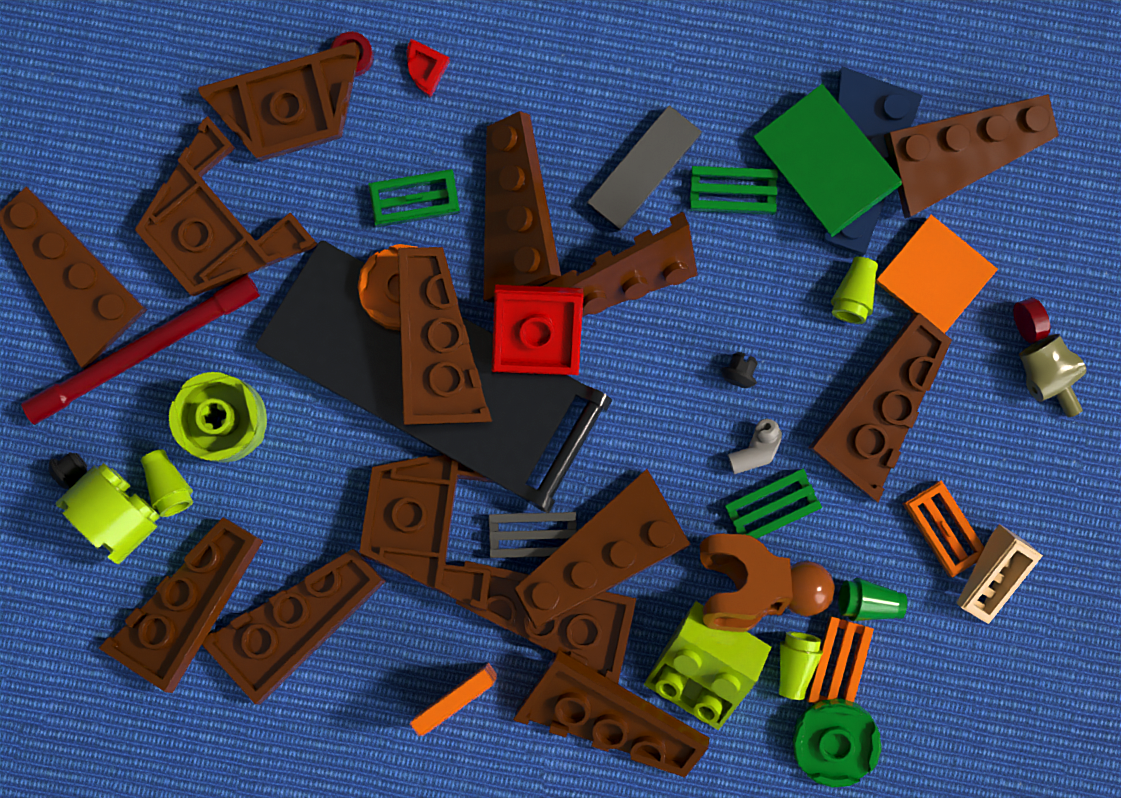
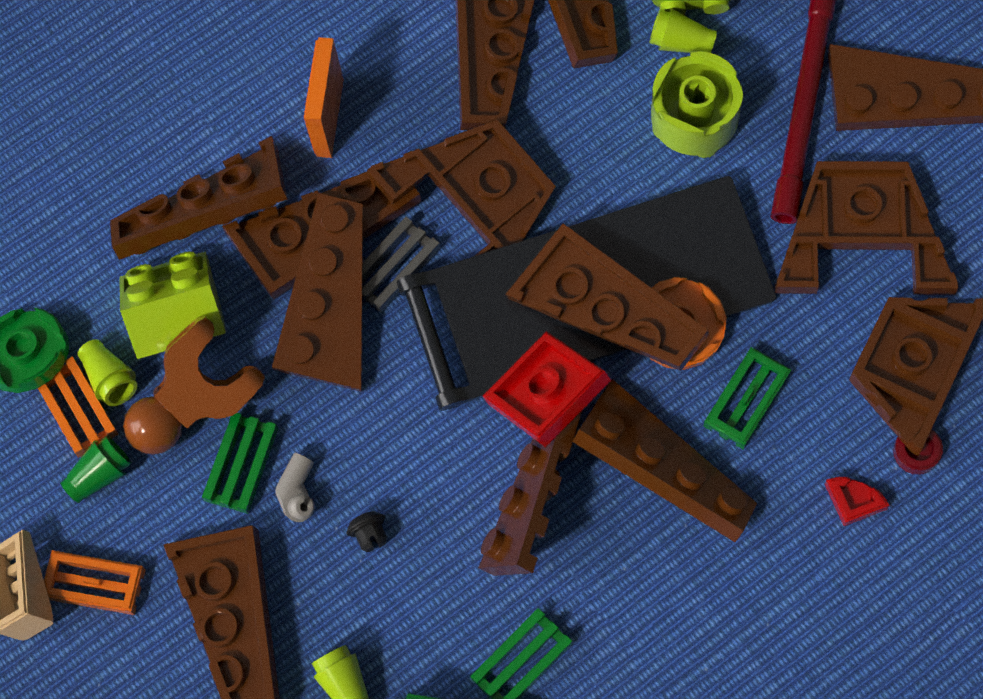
camera: 135 degrees right, 15 degrees down
(644, 168) = (607, 603): dark grey tile -> none

